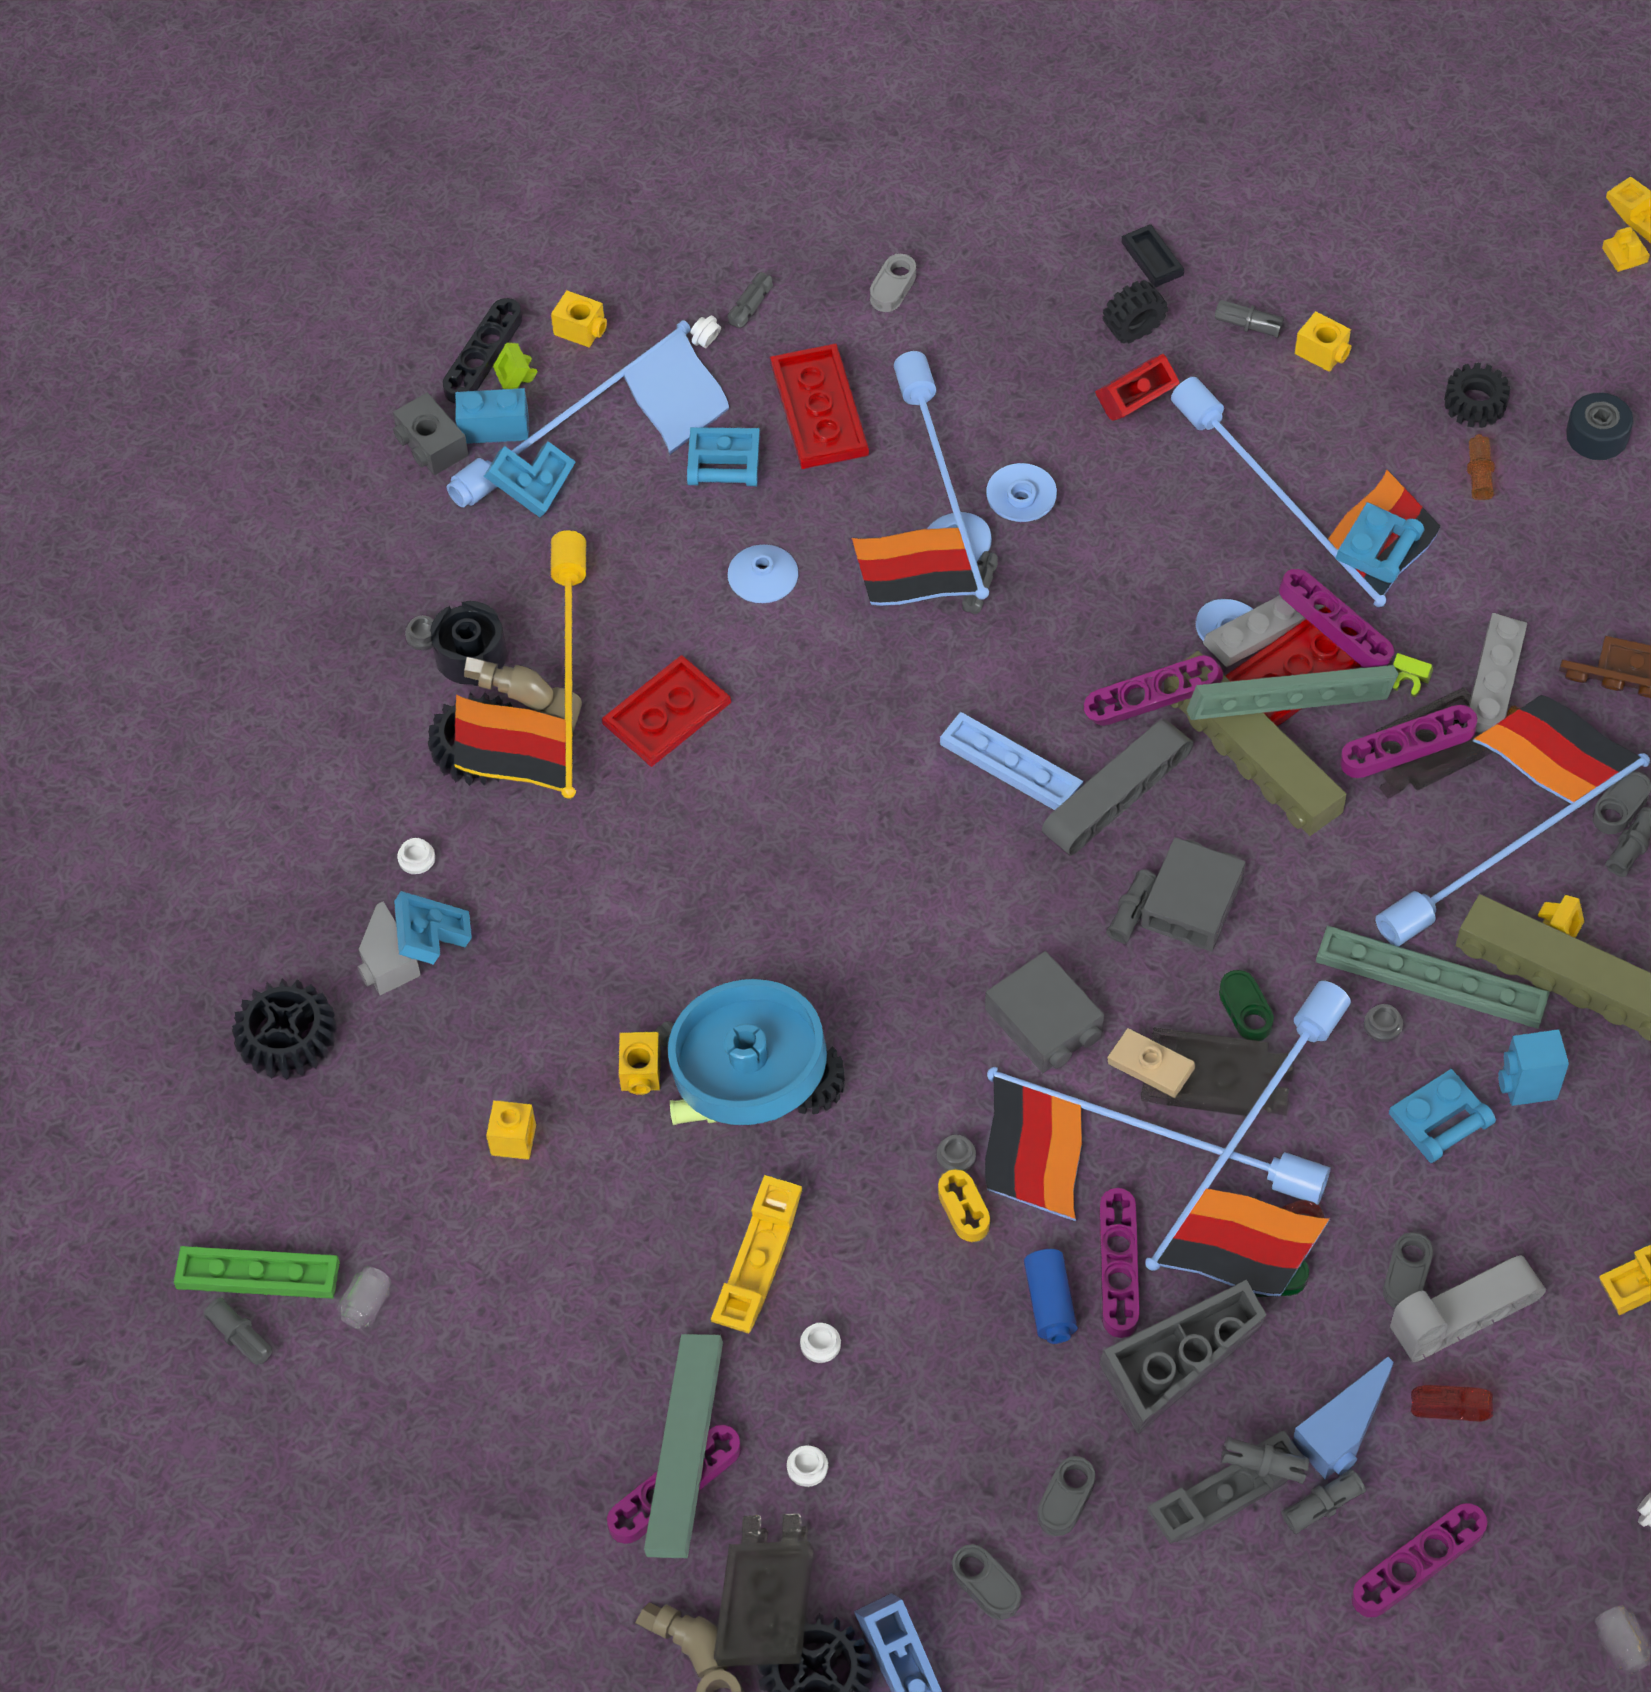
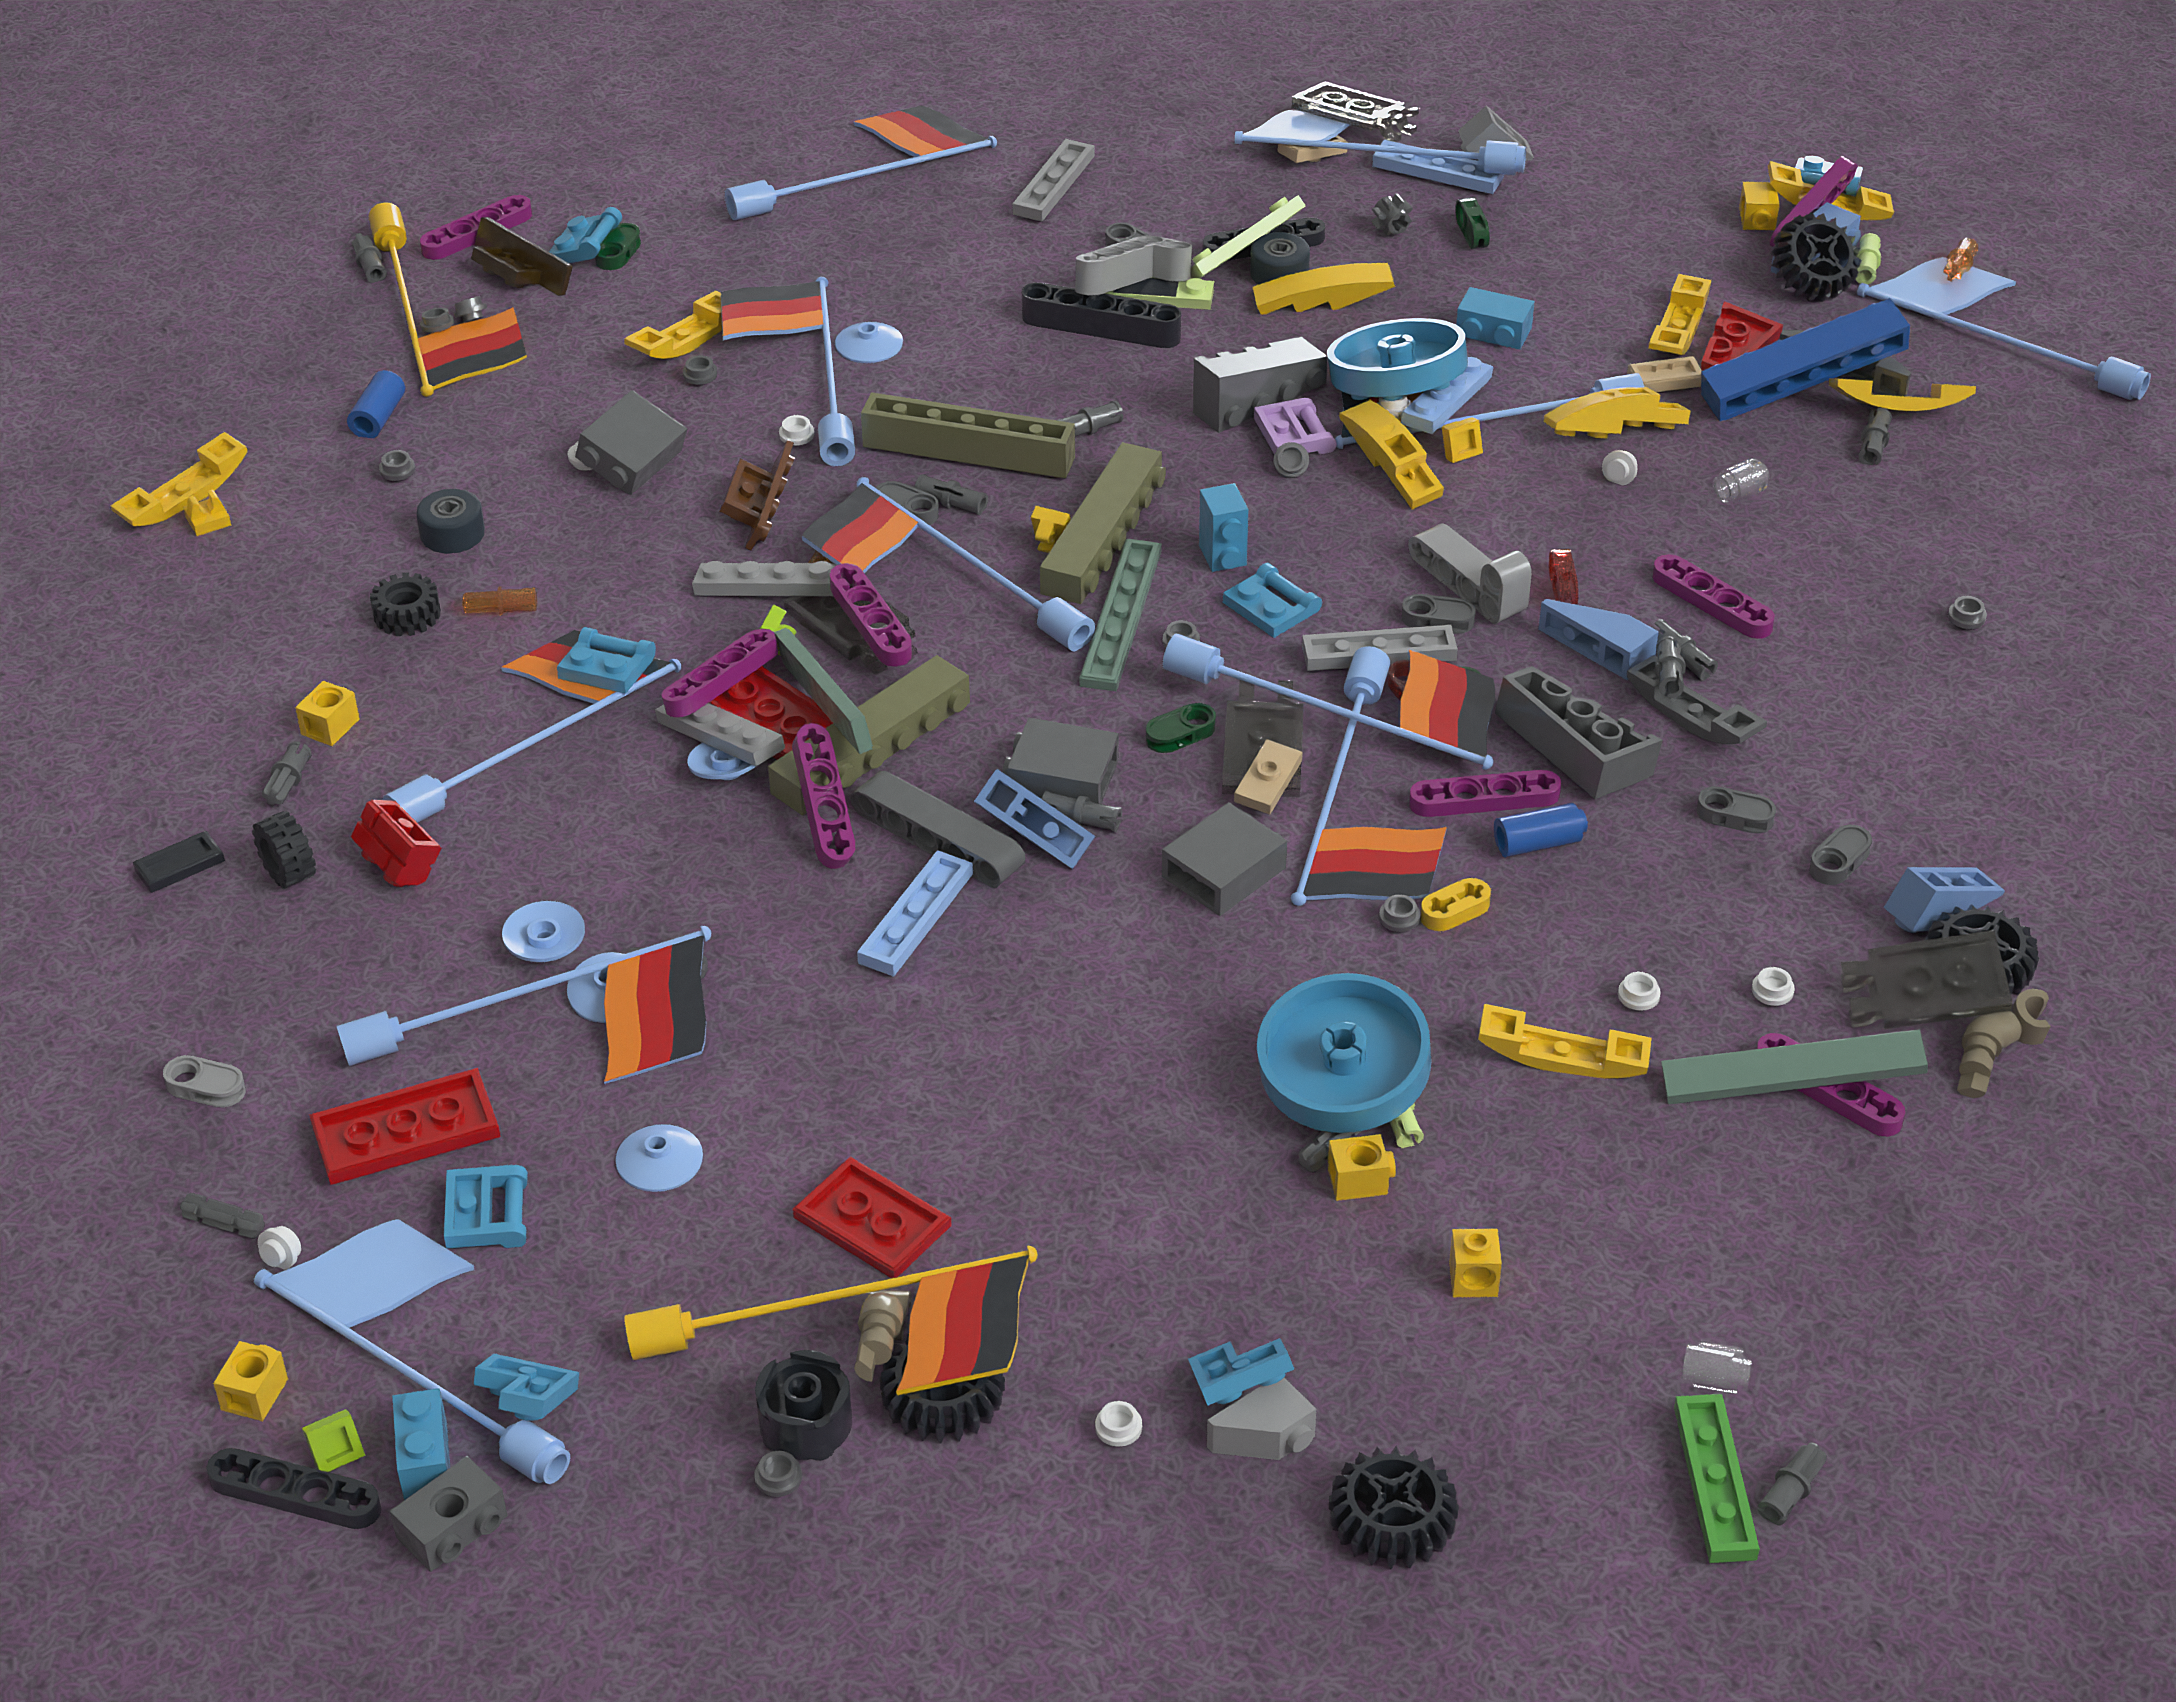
camera: 100 degrees left, 15 degrees down
(1119, 852) = (1034, 819): none -> medium blue slope
(1350, 1202) = (1337, 649): none -> light grey plate

